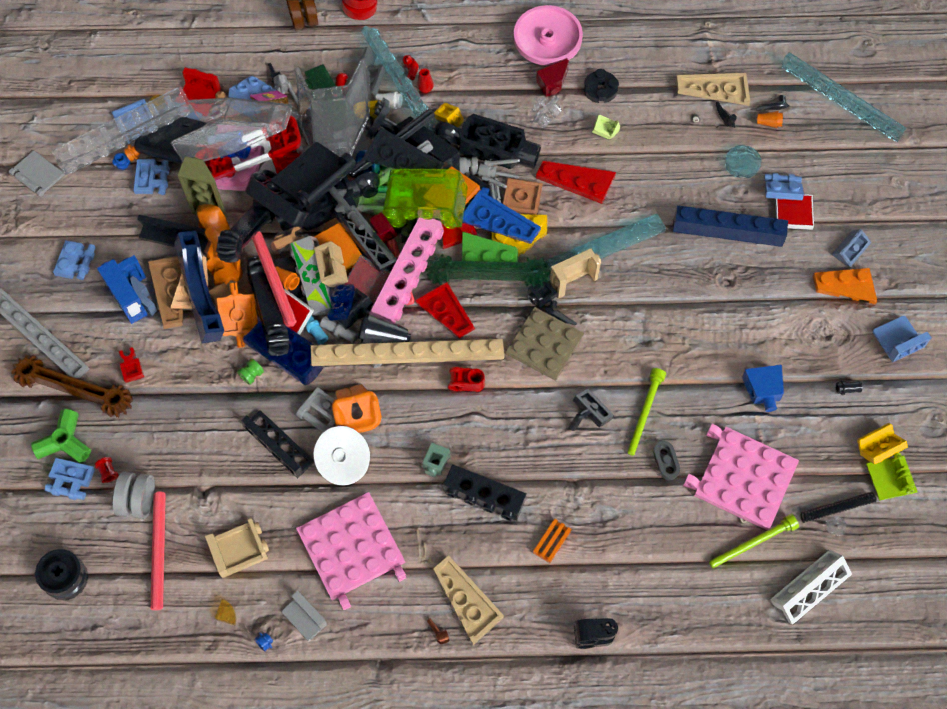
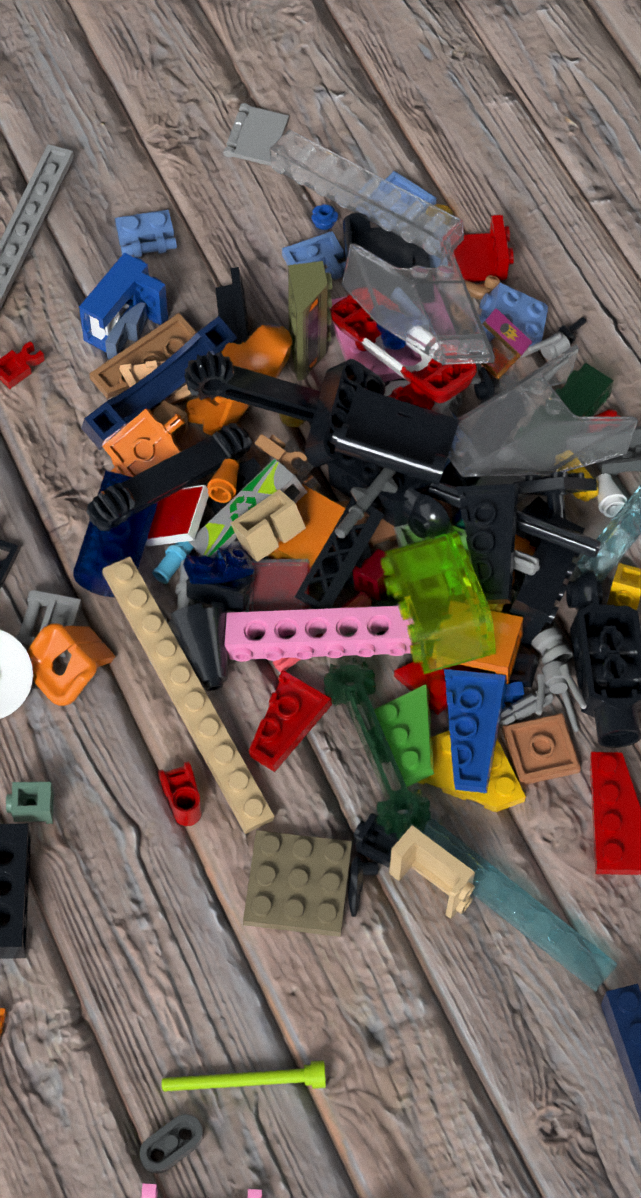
camera: 65 degrees right, 5 degrees down
(131, 152) = (336, 220): orange plate -> none
(250, 371) = (69, 507): bright green wheel -> none
(274, 280) = (208, 465): coral axle -> none
(592, 408) = (212, 992): black plate -> none

